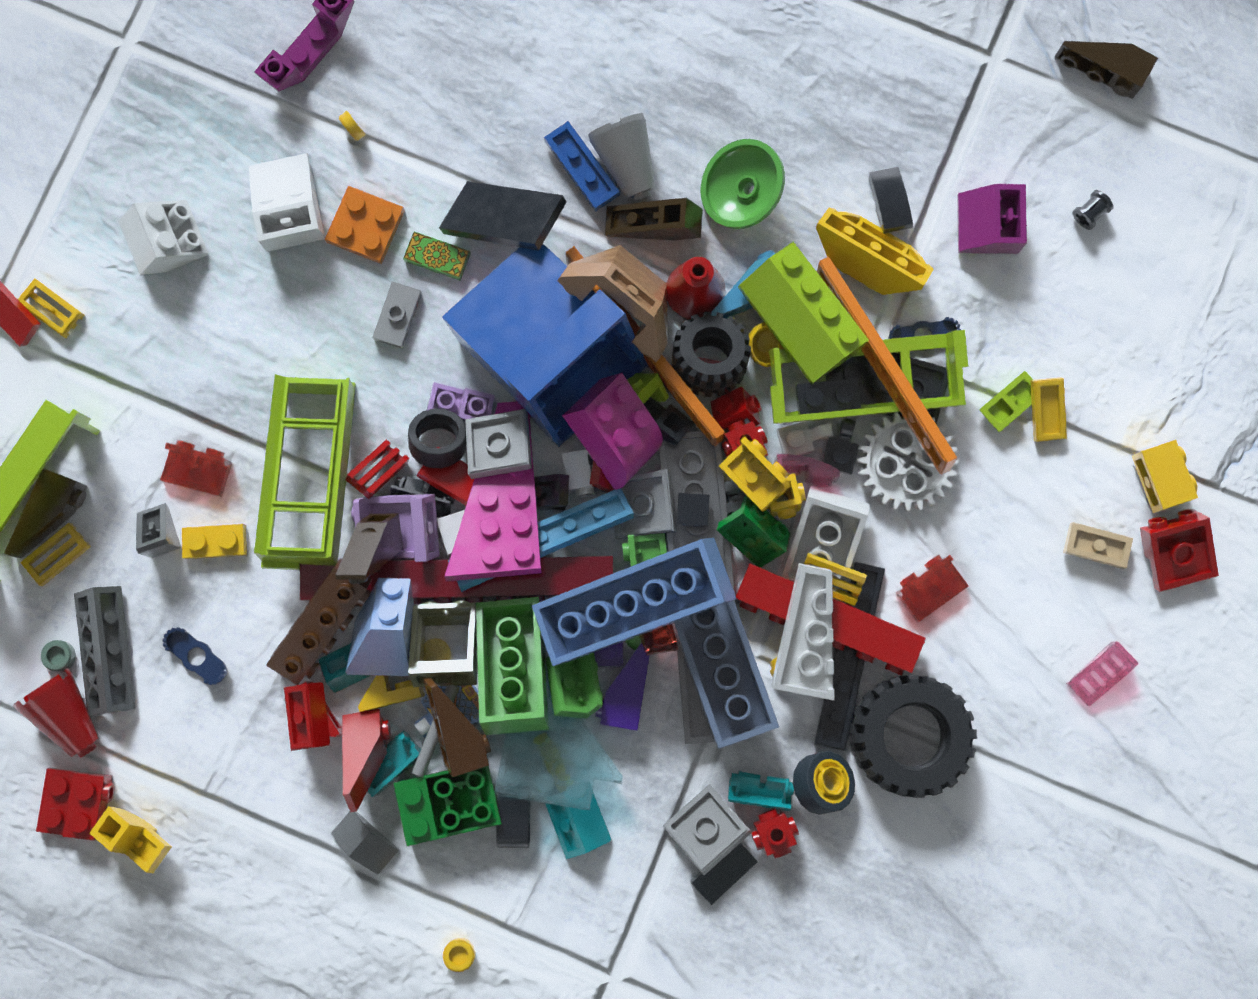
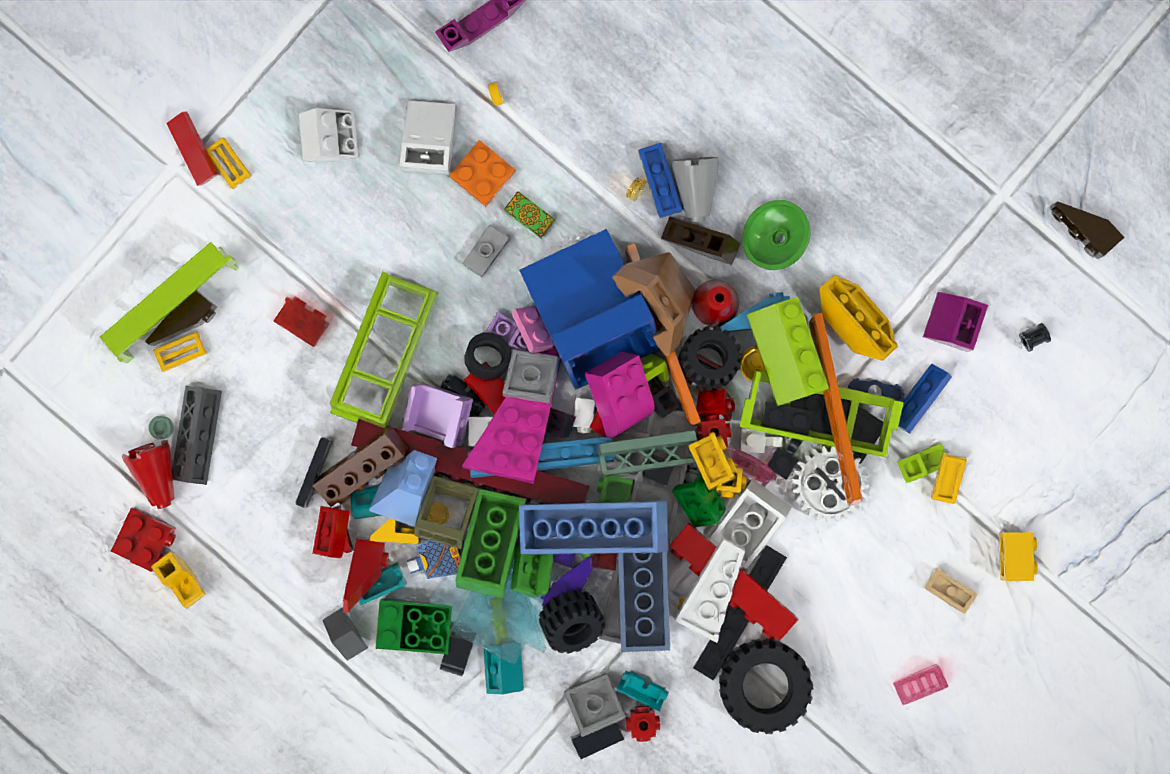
camera: 15 degrees right, 5 degrees up
(156, 532) = (259, 358): dark grey slope -> none
(181, 642) = (253, 447): dark blue piece -> none
(214, 541) = (299, 379): yellow plate -> none
(264, 648) = (313, 472): none -> black tile
(372, 545) = (415, 426): slope -> none
(391, 454) = (450, 356): red tile -> none
(431, 739) = (421, 572): light grey bar -> none
(459, 741) = (436, 586): reddish brown slope -> none
(459, 955) = (388, 736): yellow tile -> none
(483, 388) = (532, 329): none -> bright pink plate
(503, 215) = (588, 204): black tile -> none
(556, 182) = (635, 189): none -> clear yellow tile
(644, 732) = (571, 621): none -> black tyre
(662, 483) = (646, 444): none -> sand green fence
(824, 782) = (689, 709): black wheel -> none
(843, 571) = (750, 564): yellow tile -> none
(891, 200) = (885, 281): black slope -> none
(931, 588) = (816, 583): clear red bracket -> none
(984, 320) = (922, 396): none -> blue plate
(1179, 549) = (1009, 613): red plate -> none

